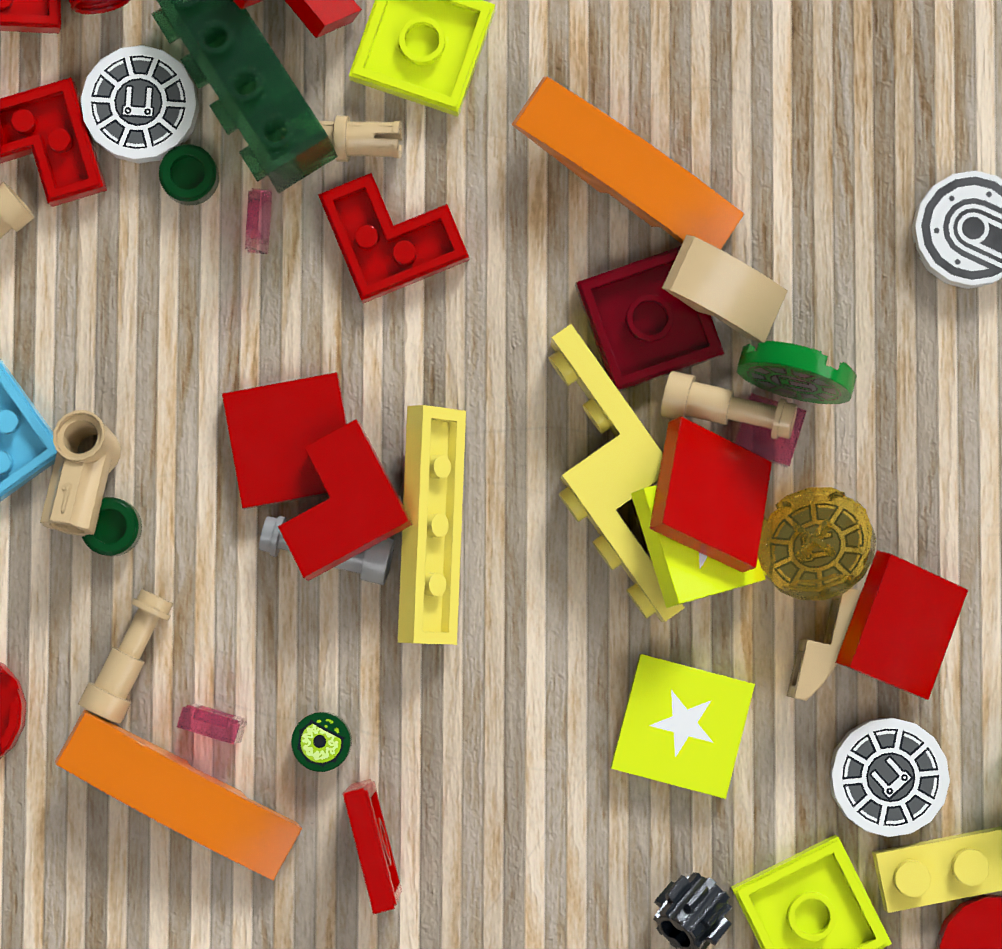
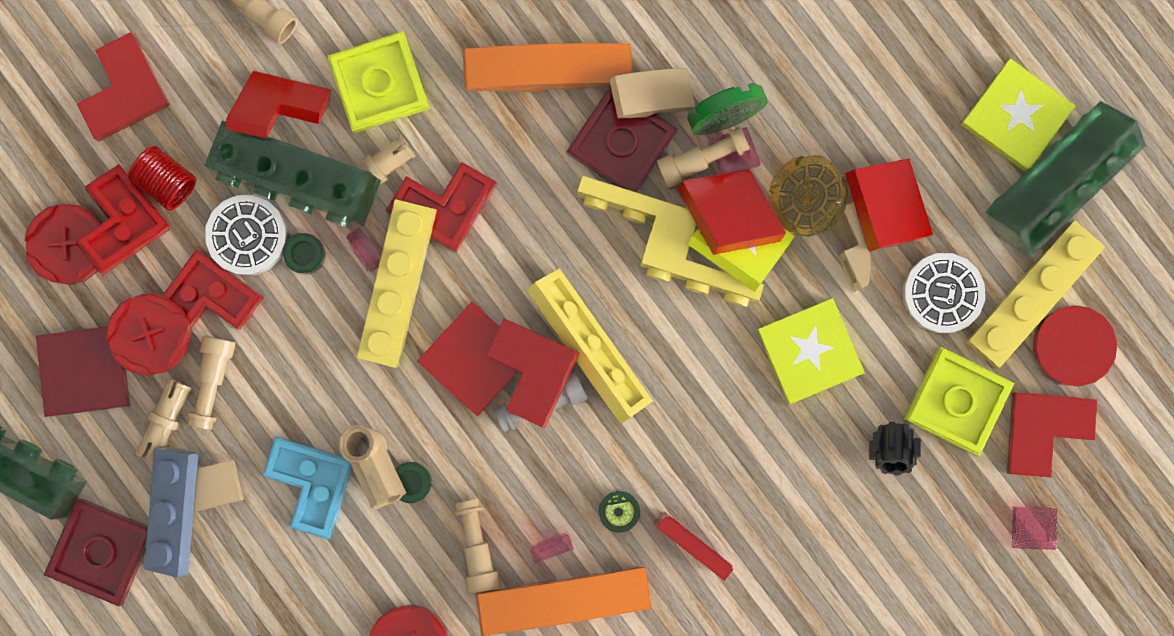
camera: 40 degrees left, 0 degrees up
(266, 287) = (396, 283): none -> light yellow plate

